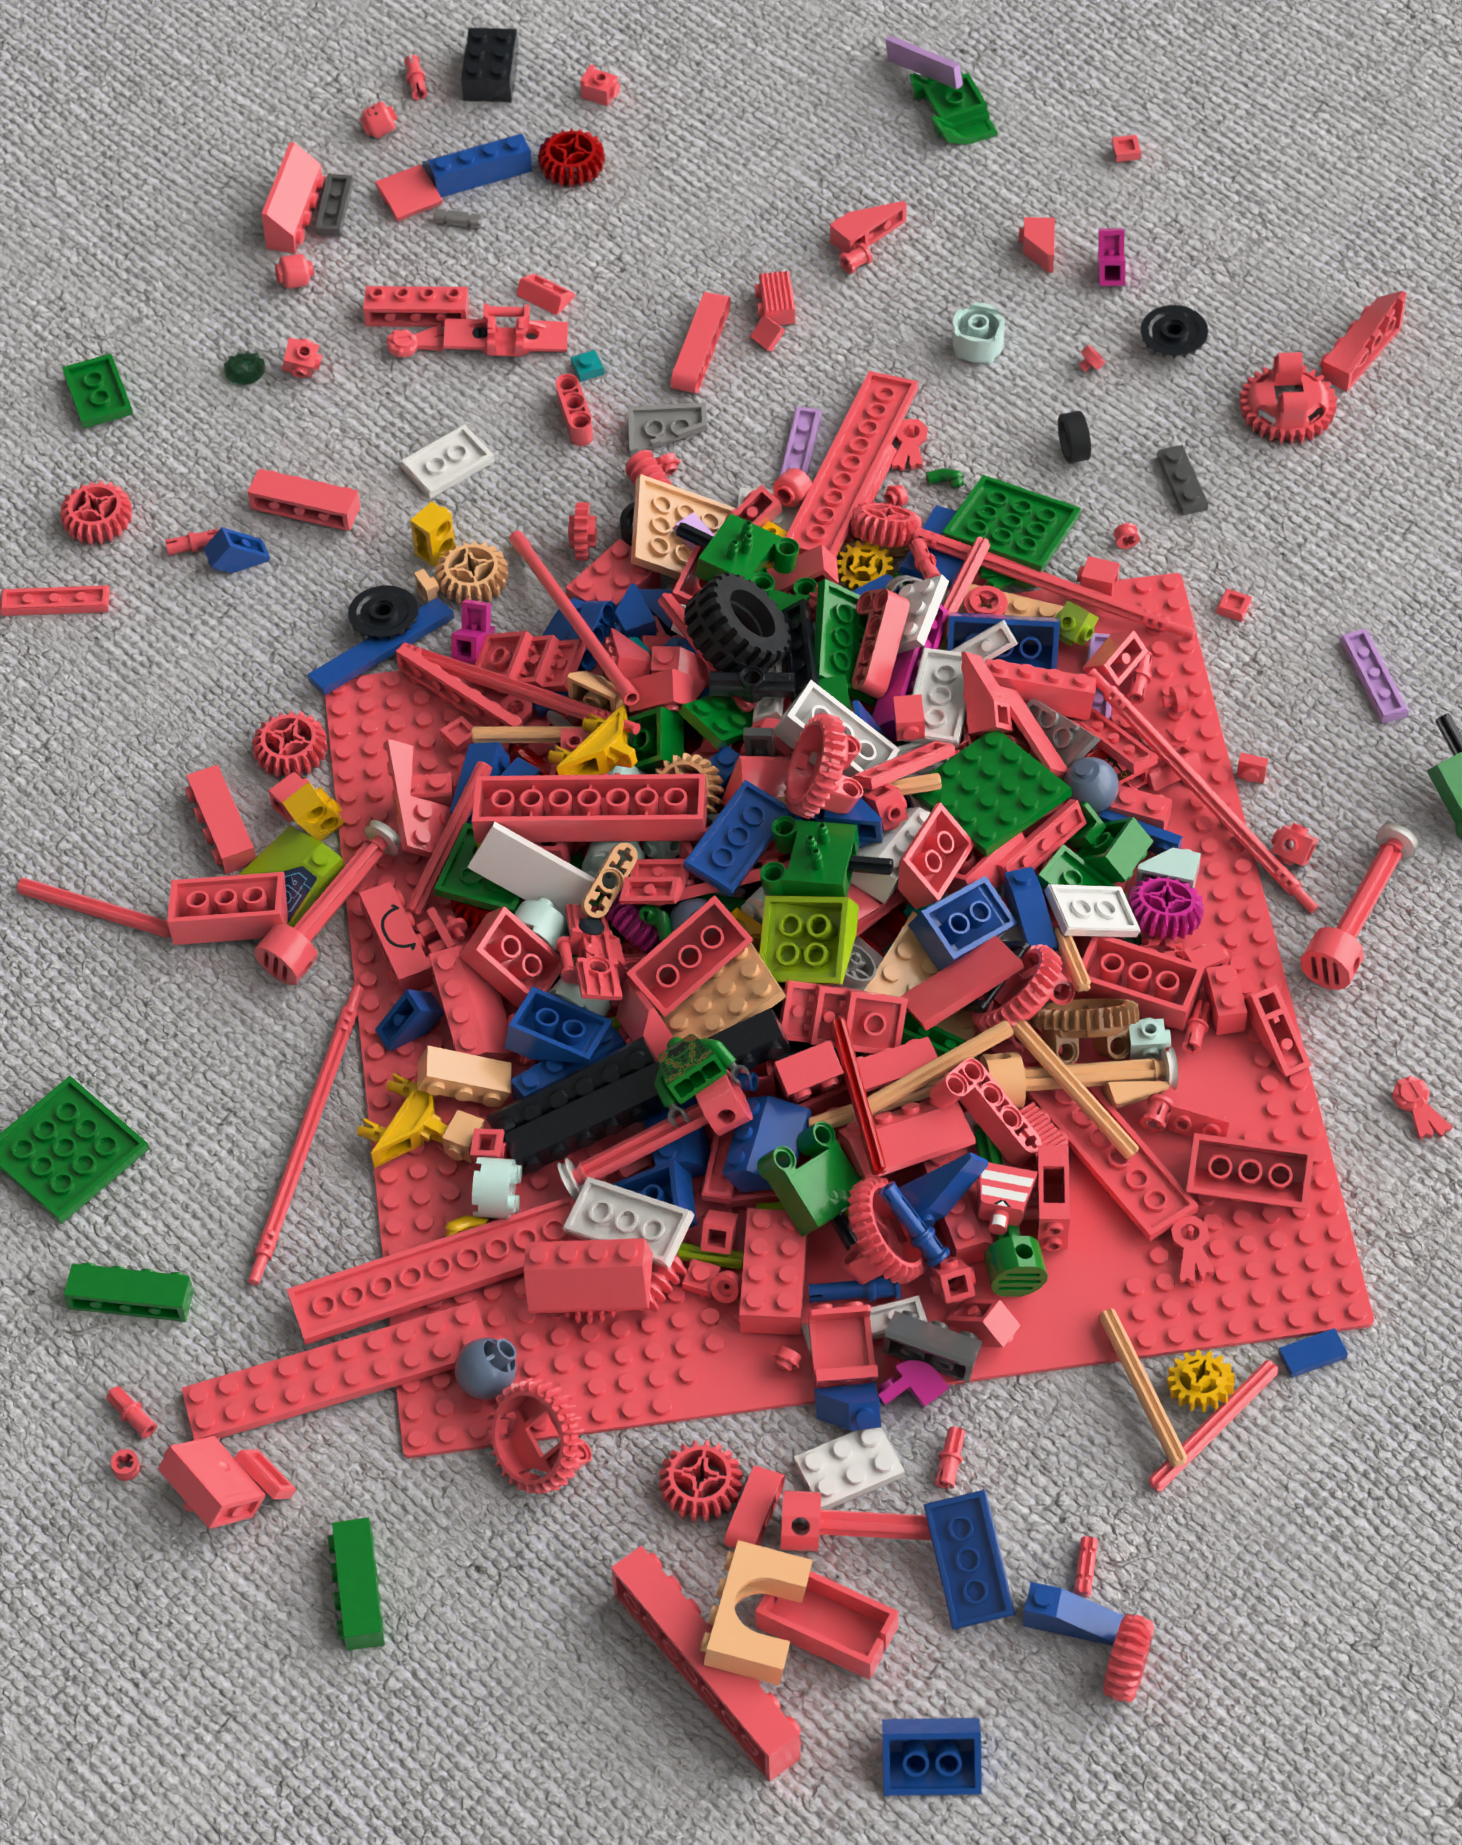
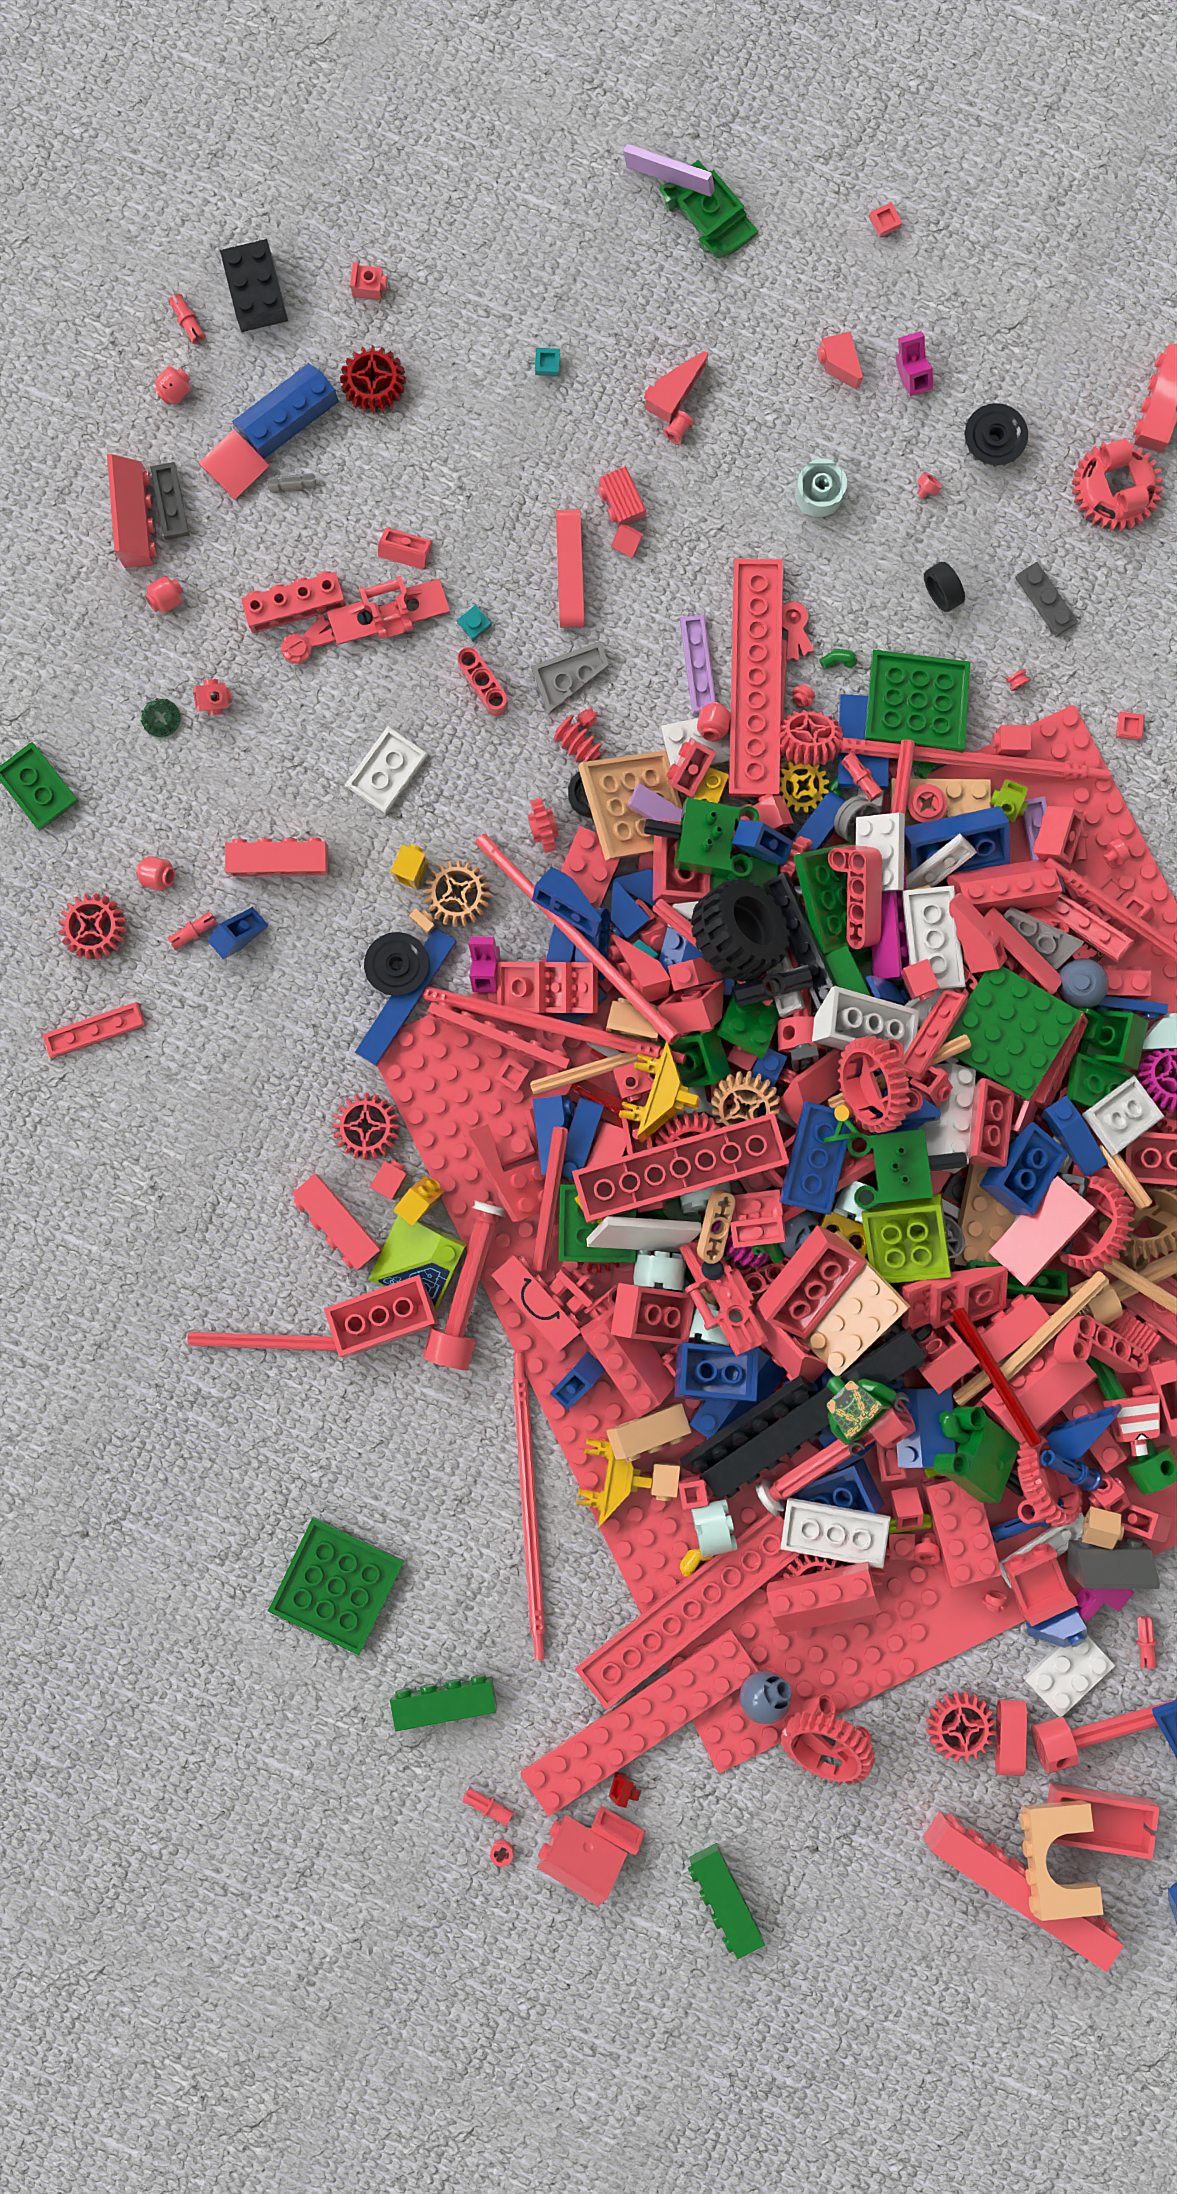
camera: 25 degrees left, 30 degrees up
(179, 484) = (155, 873): none -> coral head
(290, 1436) = (623, 1790): none -> red tile
(574, 580) = (565, 899): none -> blue slope
(747, 182) = (547, 361): none -> teal plate
(775, 801) = (843, 1114): none -> green piece
(791, 565) = (762, 842): none -> blue brick
(792, 1139) = (951, 1428): none -> green arm
(931, 1299) = (1102, 1528): none -> light nougat brick

